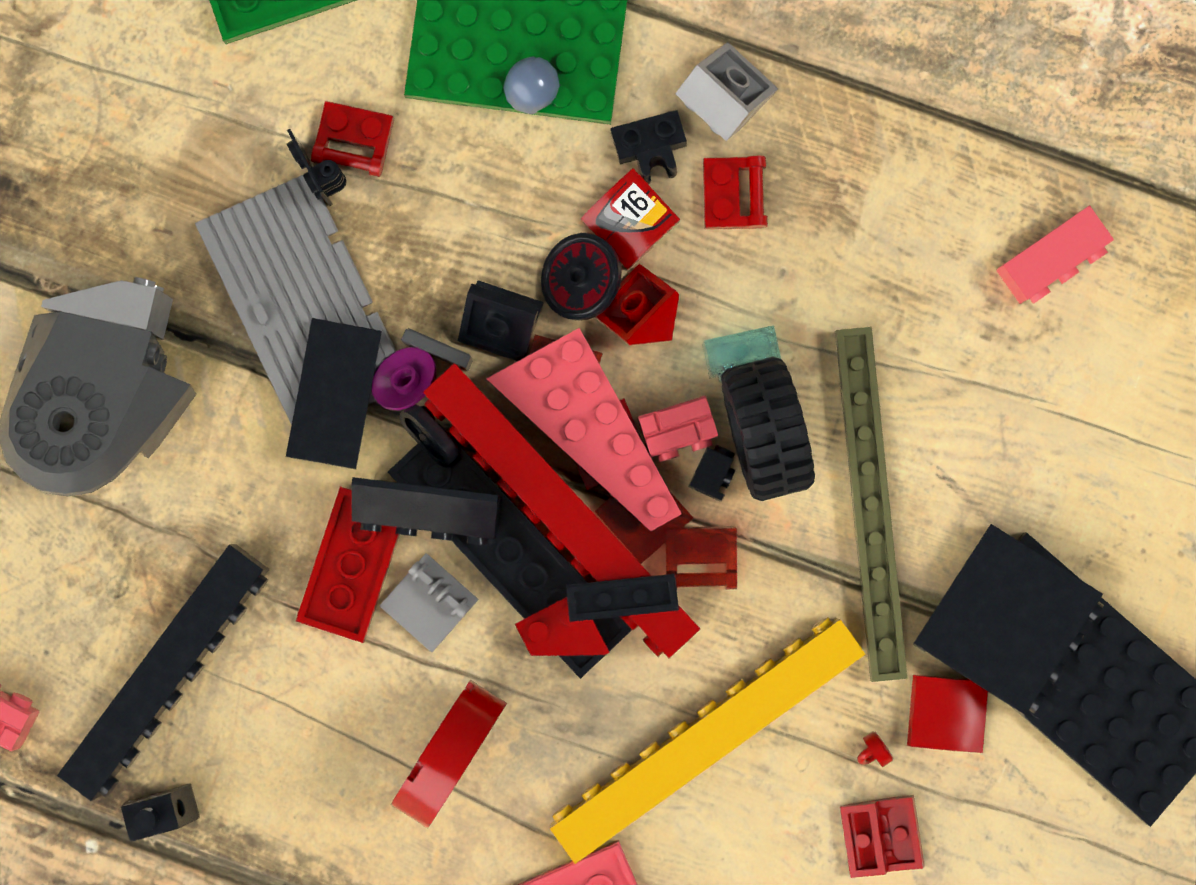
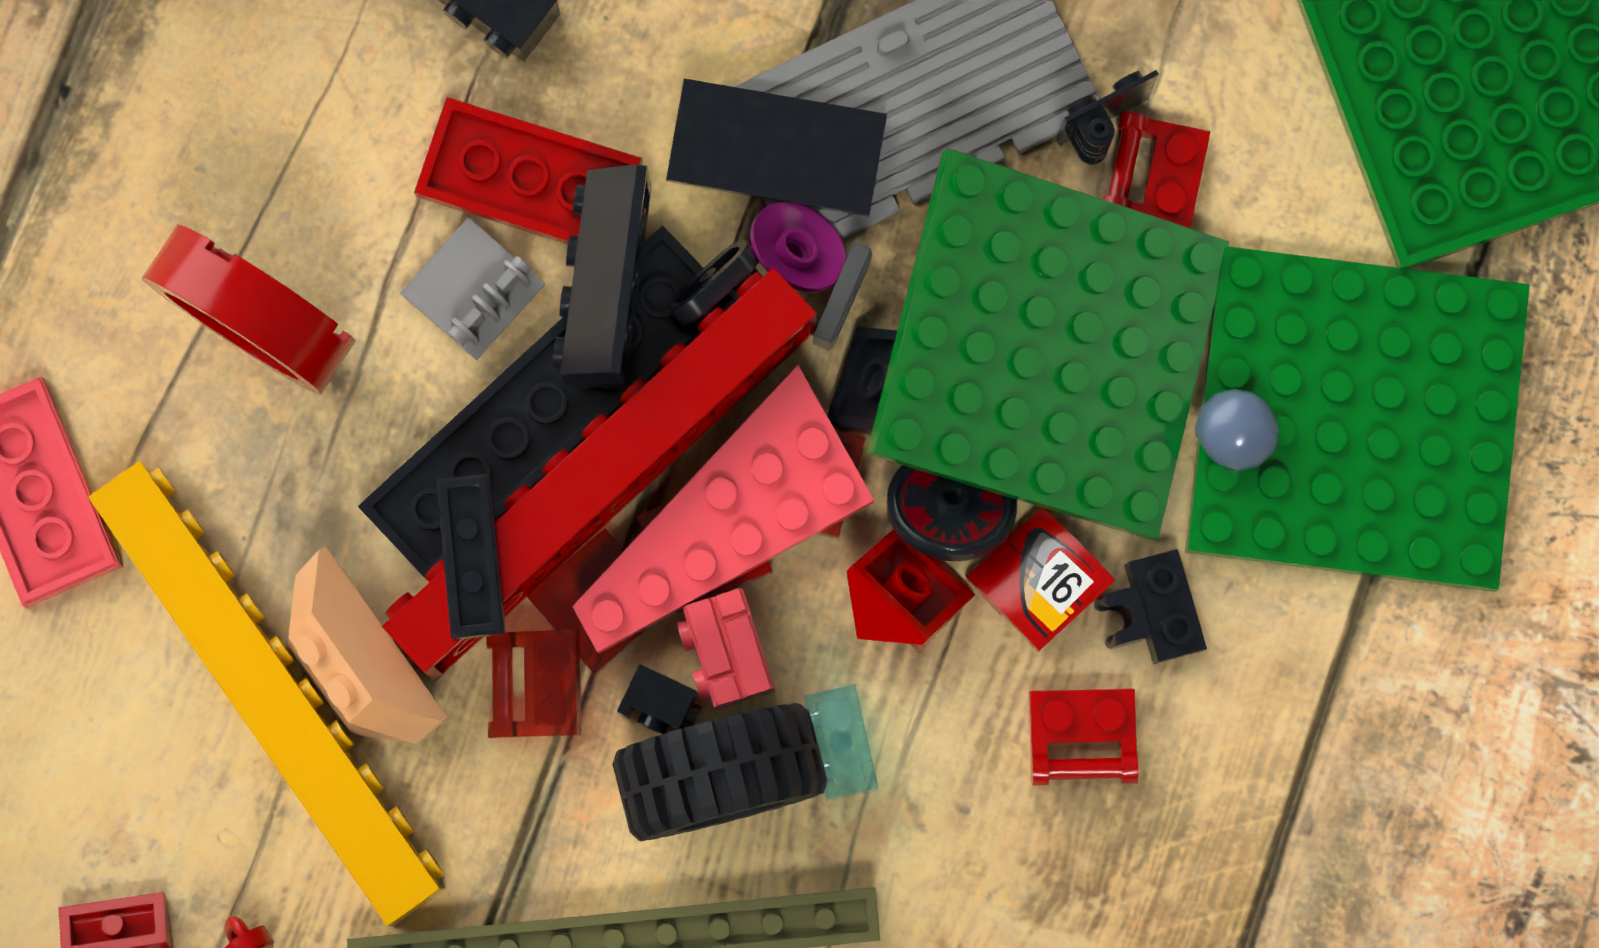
camera: 90 degrees right, 5 degrees down
(474, 209) = (1048, 346): none -> green plate
(553, 634) = (419, 456): red wing -> none
(685, 679) = (355, 659): none -> light nougat wedge
(726, 91) = (1237, 722): light grey slope -> none

